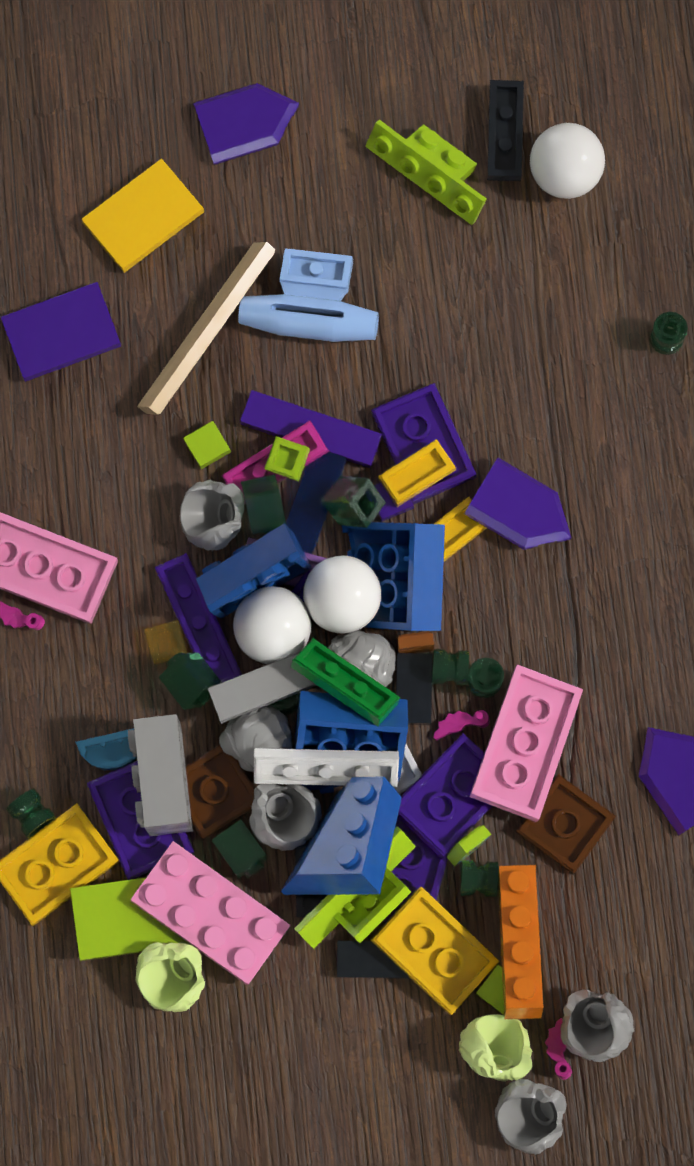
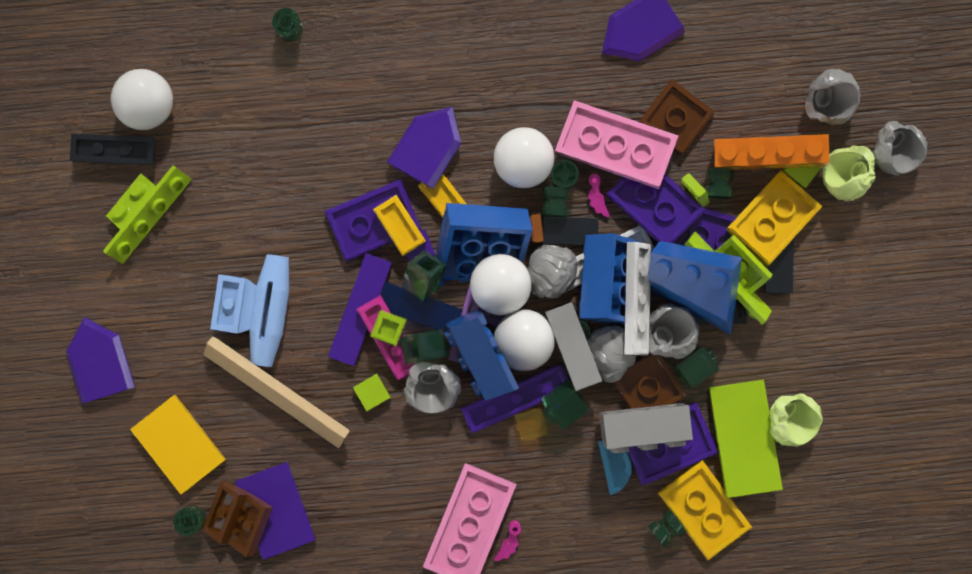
camera: 90 degrees left, 10 degrees up
(51, 236) = (193, 516): none -> clear green wheel
(51, 285) = (237, 518): none -> reddish brown slope
(210, 913) = (746, 389): bright pink plate -> none
(345, 682) = (575, 282): green tile -> none
(506, 624) = (523, 157): none -> white piece
(556, 1051) = (847, 129): dark pink piece -> none

